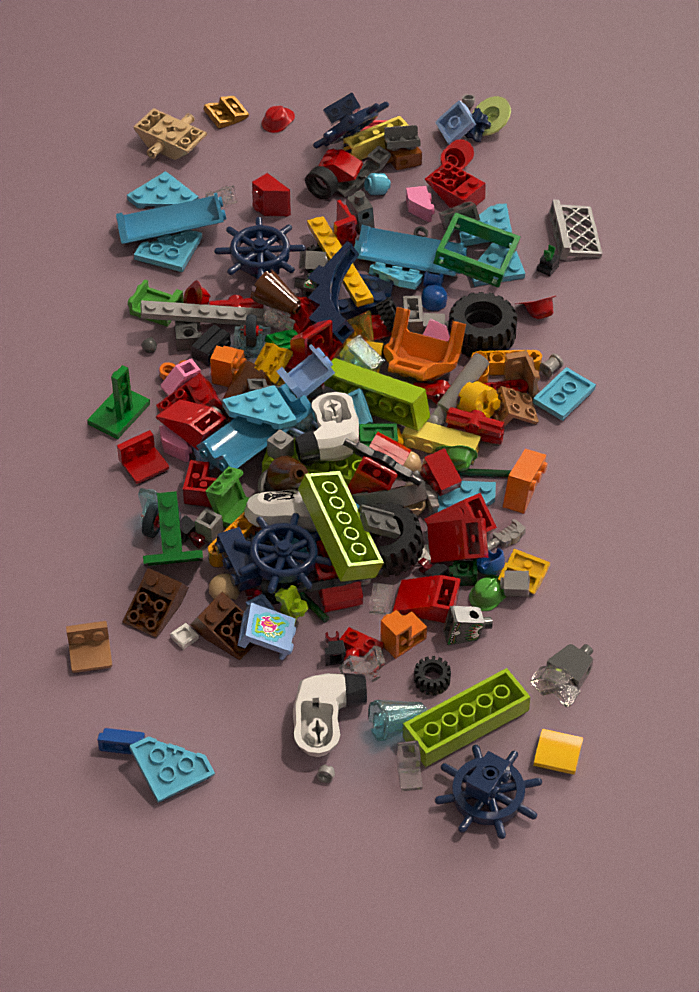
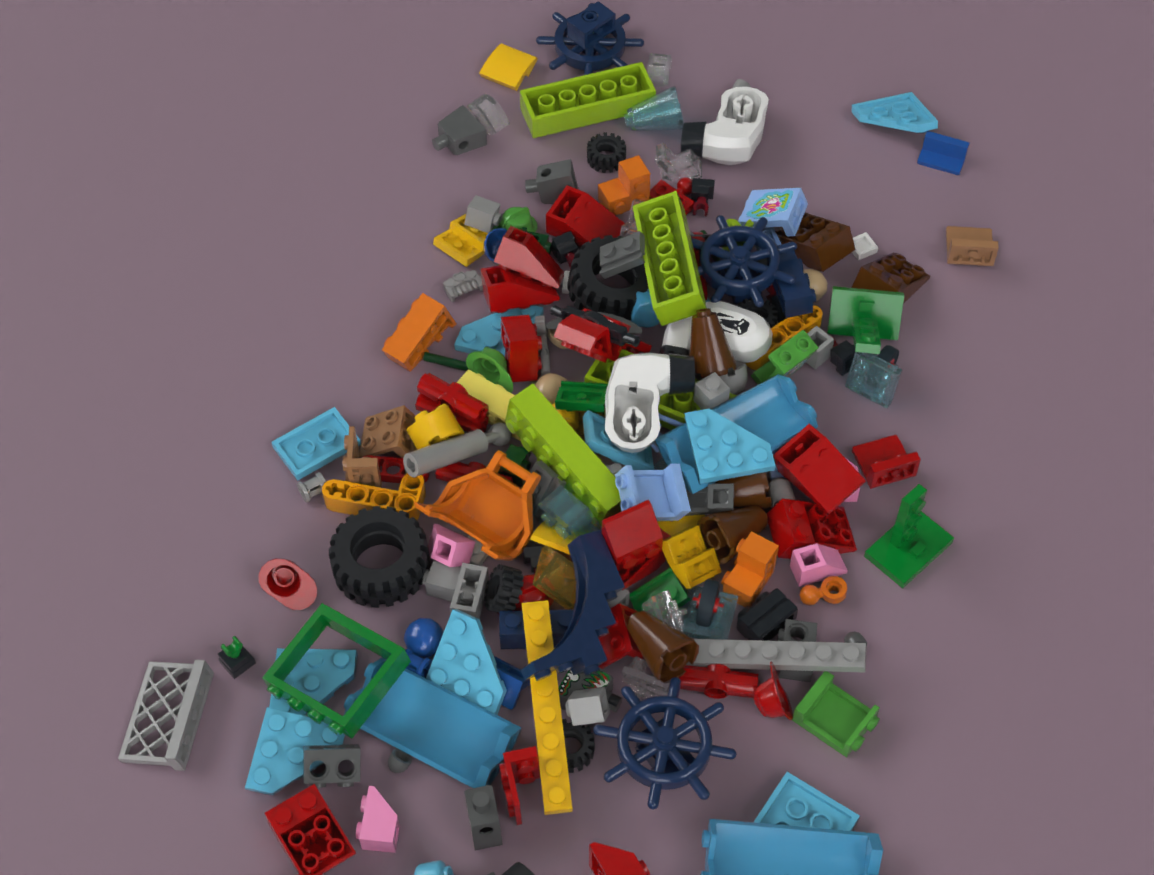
camera: 165 degrees left, 5 degrees up
(196, 483) = (820, 393): red brick -> none

